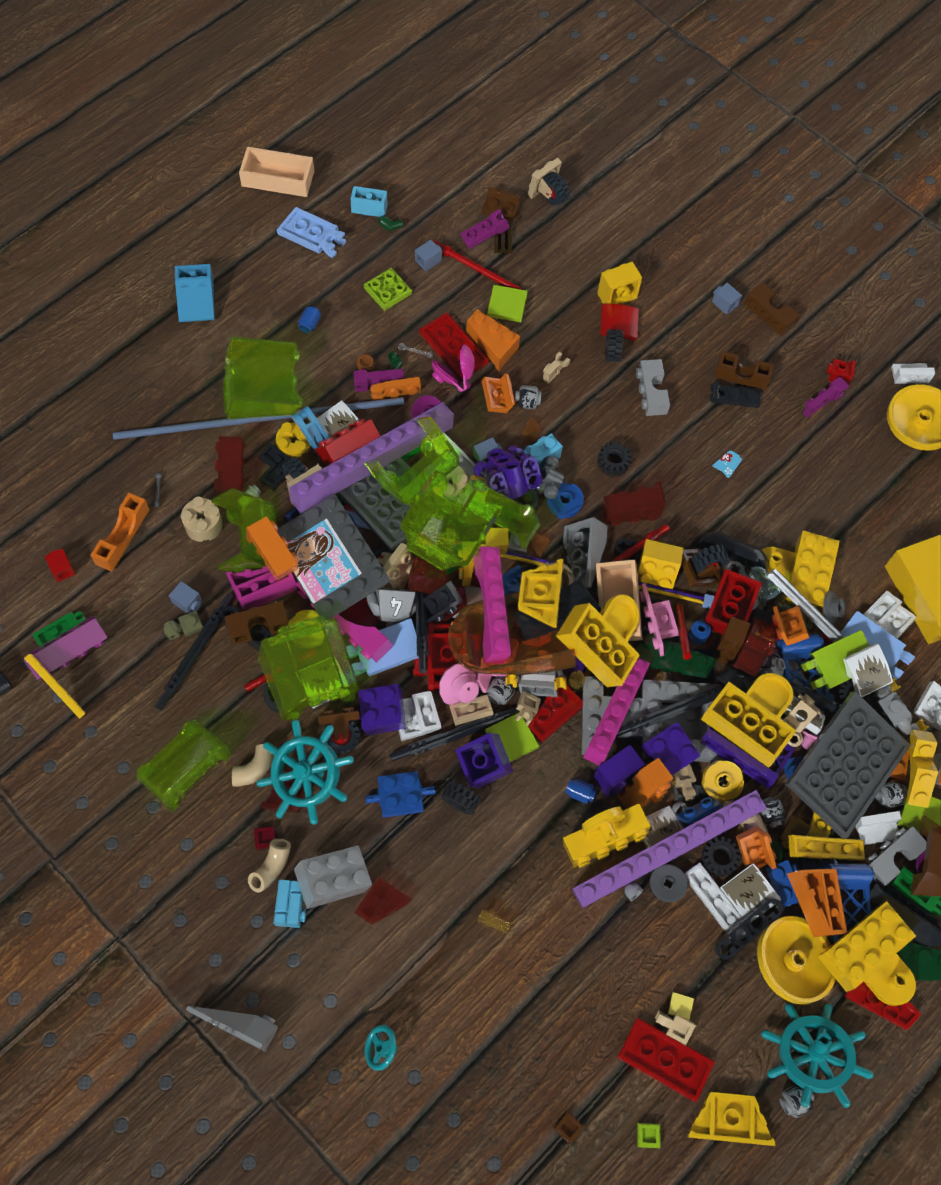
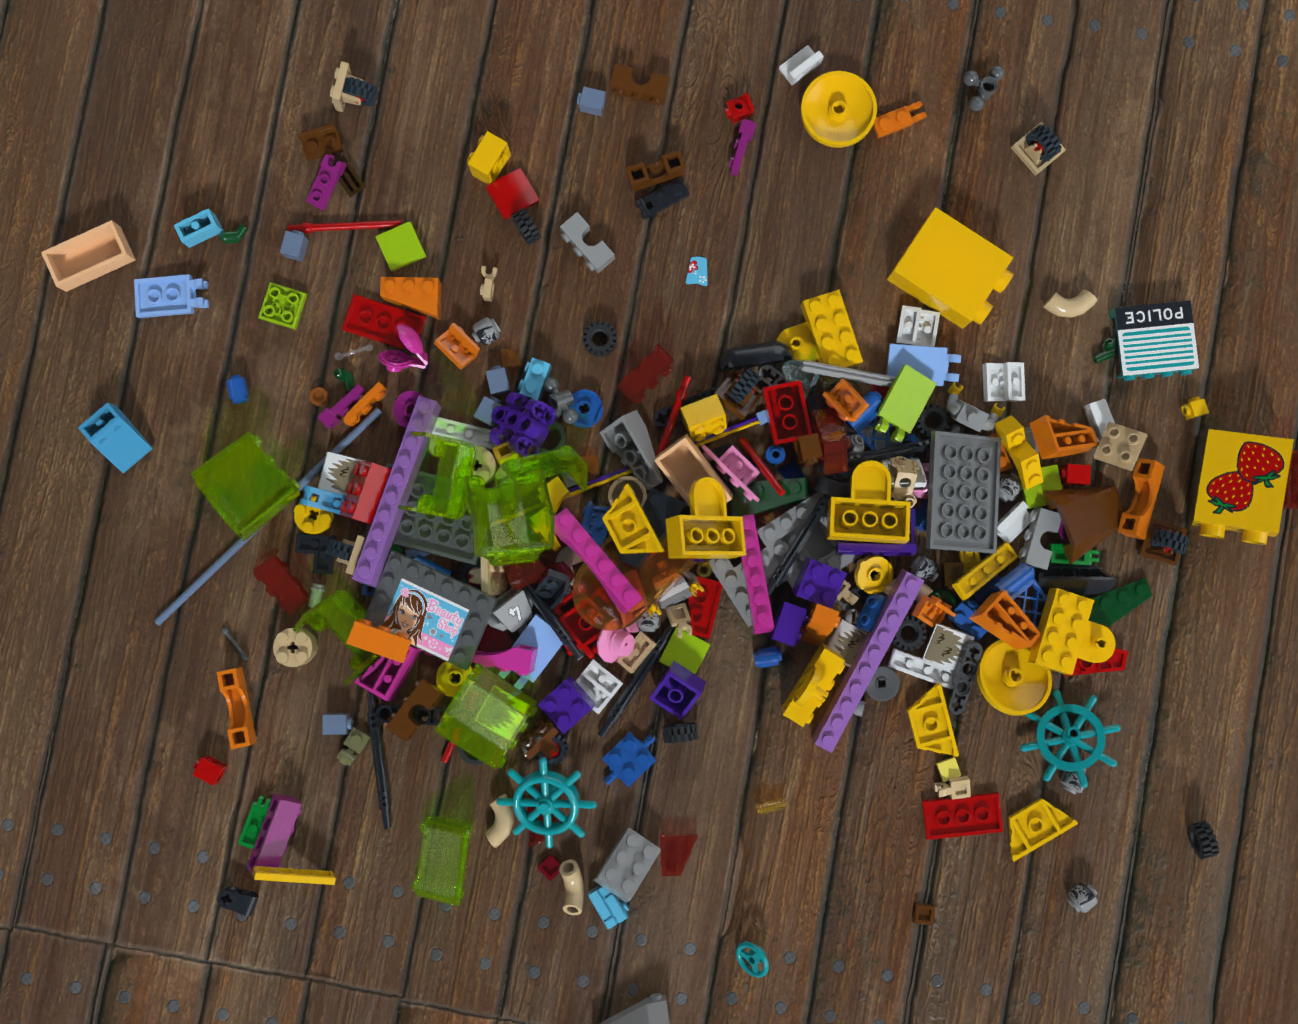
camera: 35 degrees left, 20 degrees up
(511, 435) = (498, 381): none -> sand blue brick
(648, 1135) = (983, 878): lime tile -> none
(691, 952) = (932, 723): none -> yellow wing
(833, 607) = (868, 354): dark grey piece -> none
(868, 670) = (931, 397): slope -> none

